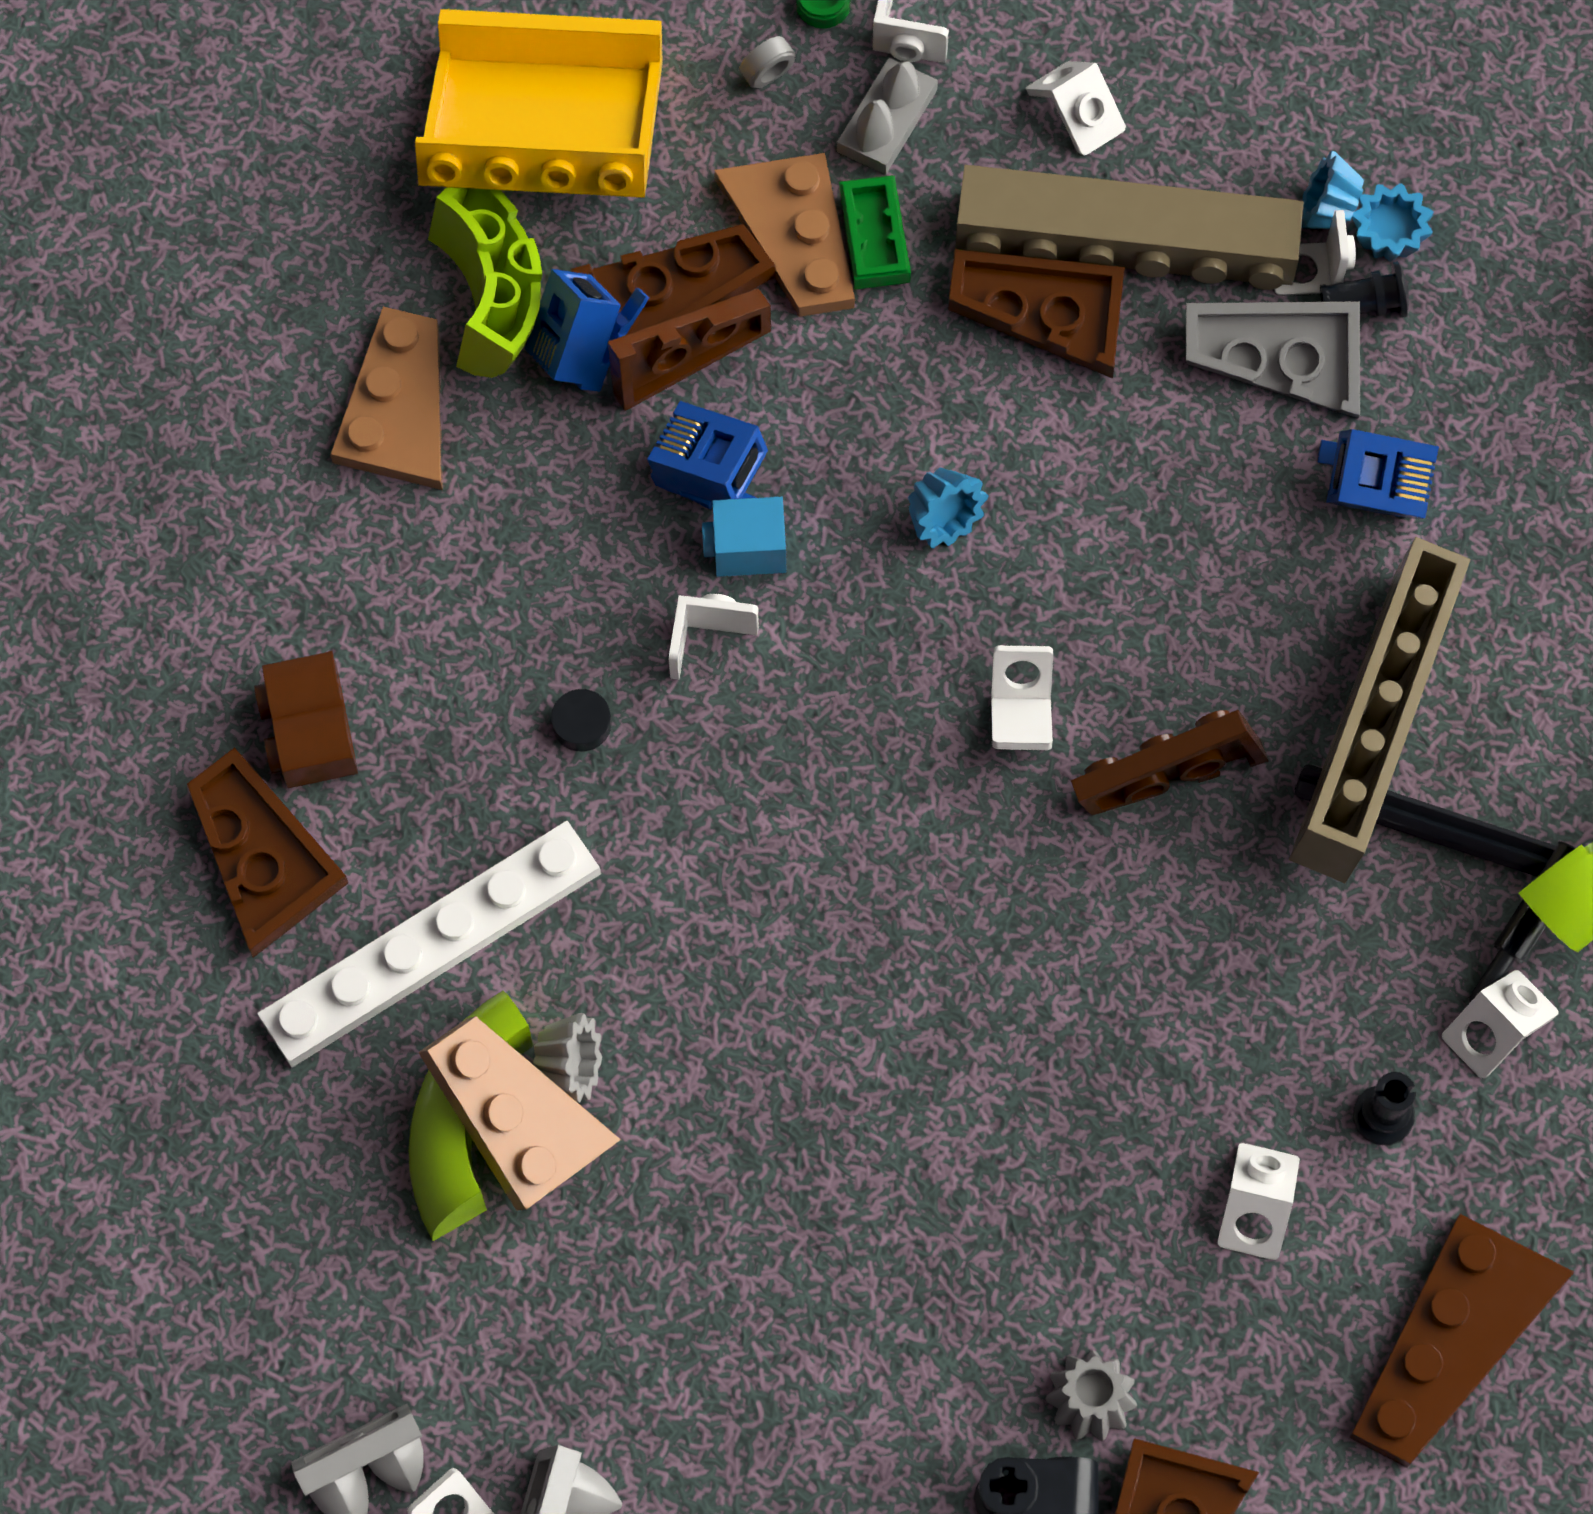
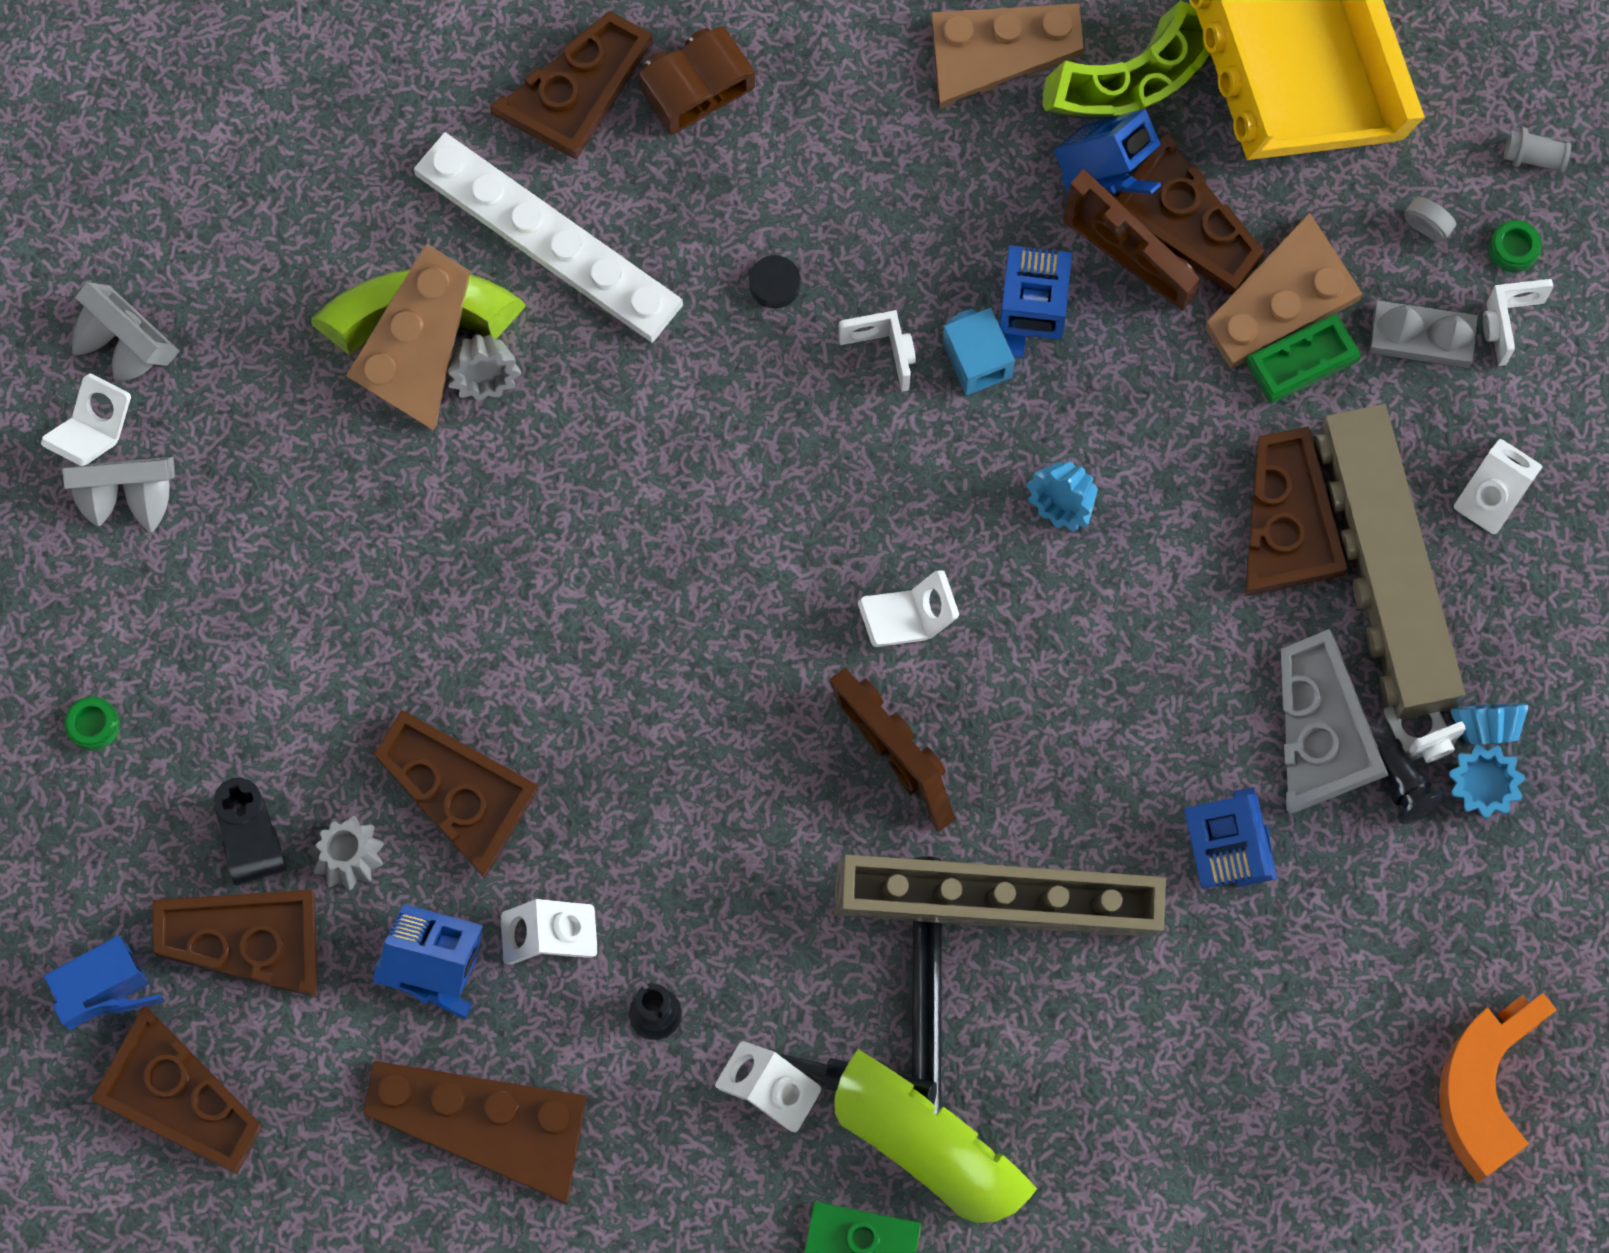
camera: 70 degrees right, 5 degrees up
(1061, 1243) = (457, 788): none -> reddish brown wing
(1255, 1329) = (430, 957): none -> blue piece

